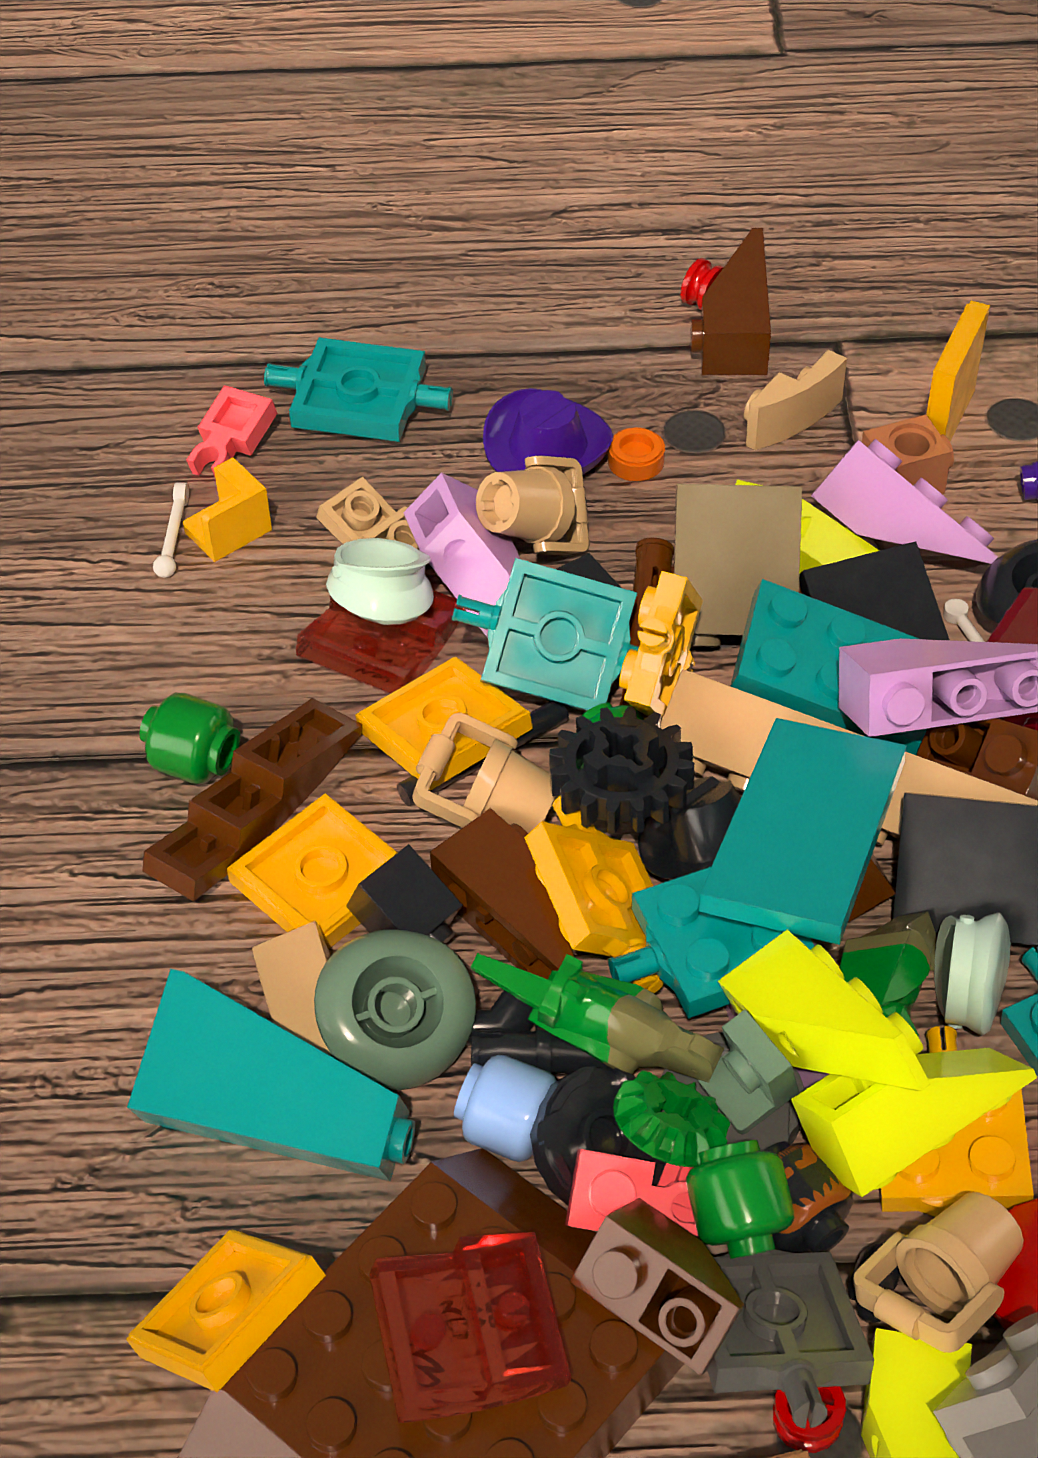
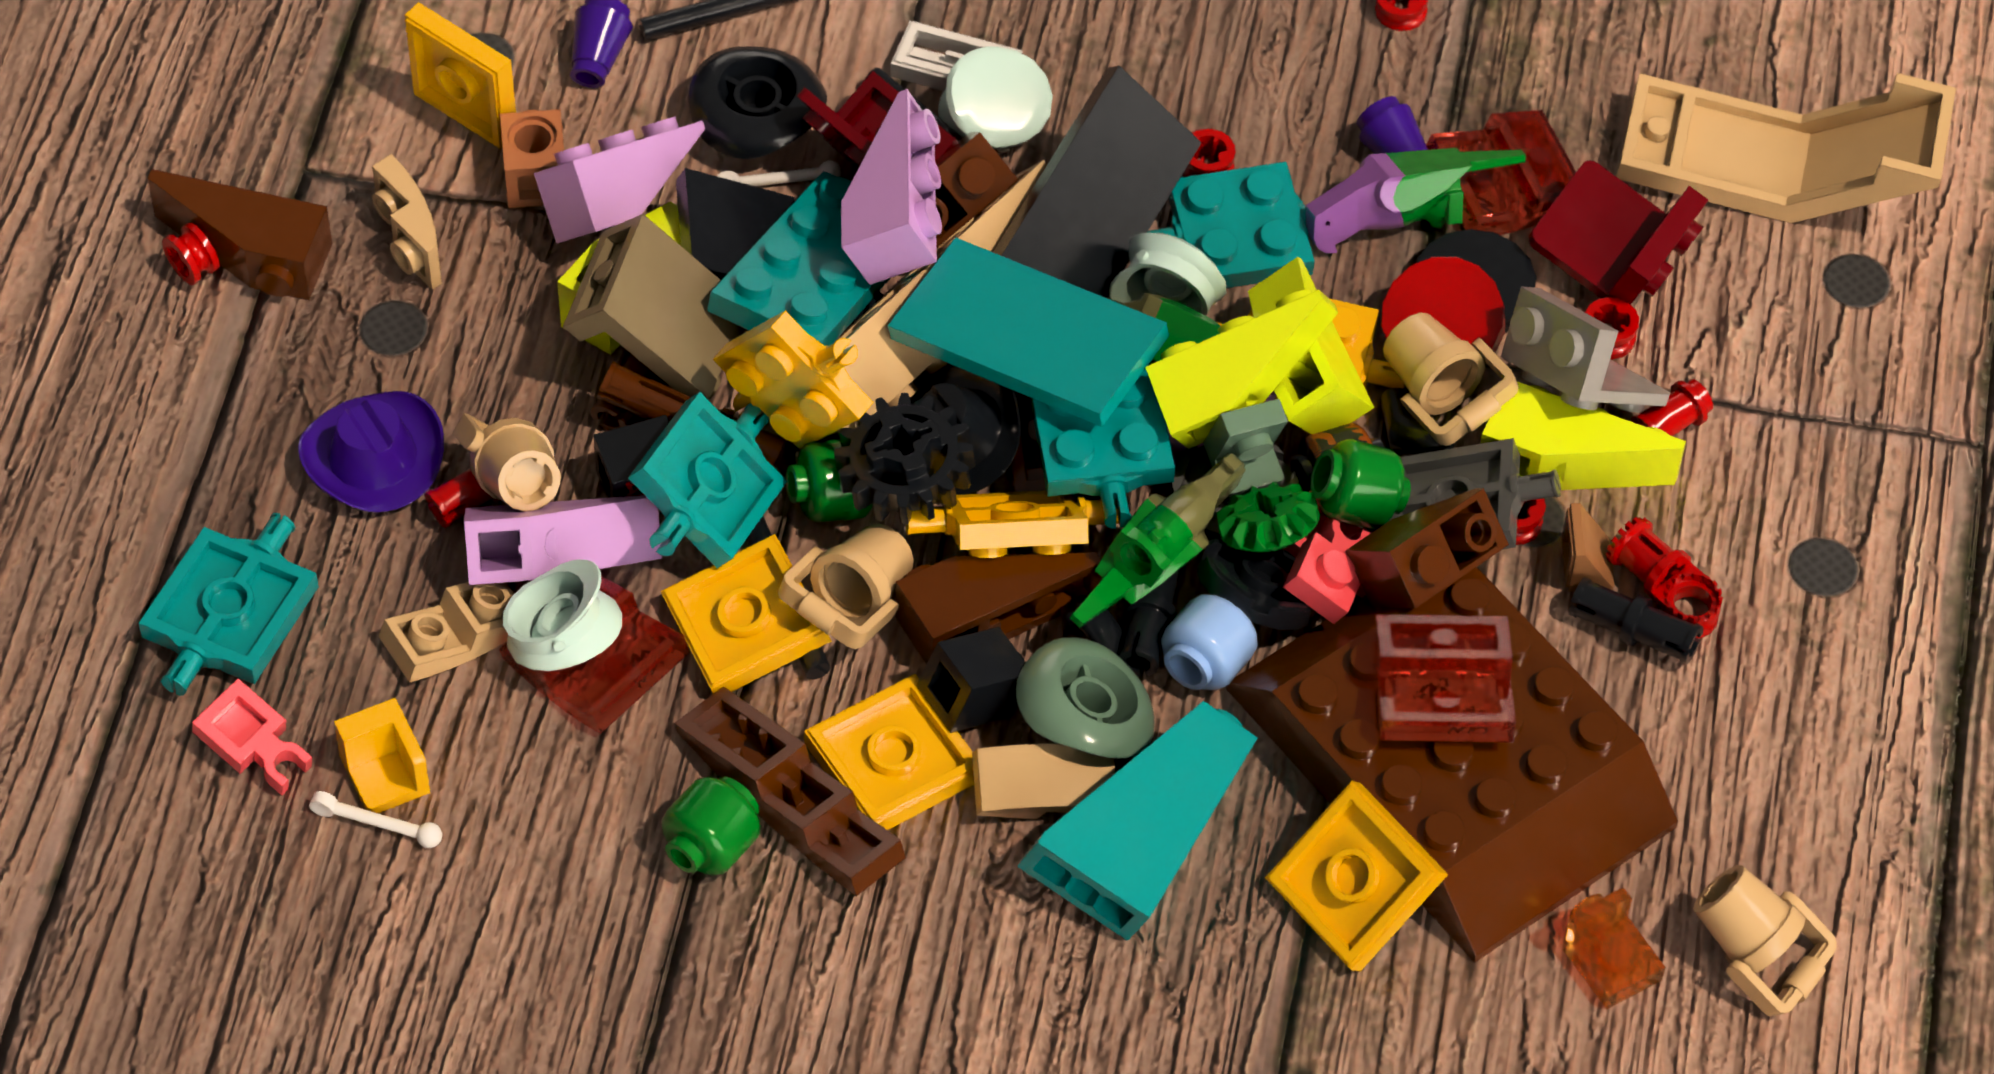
camera: 80 degrees left, 5 degrees up
(636, 454) = (422, 375): orange tile -> none

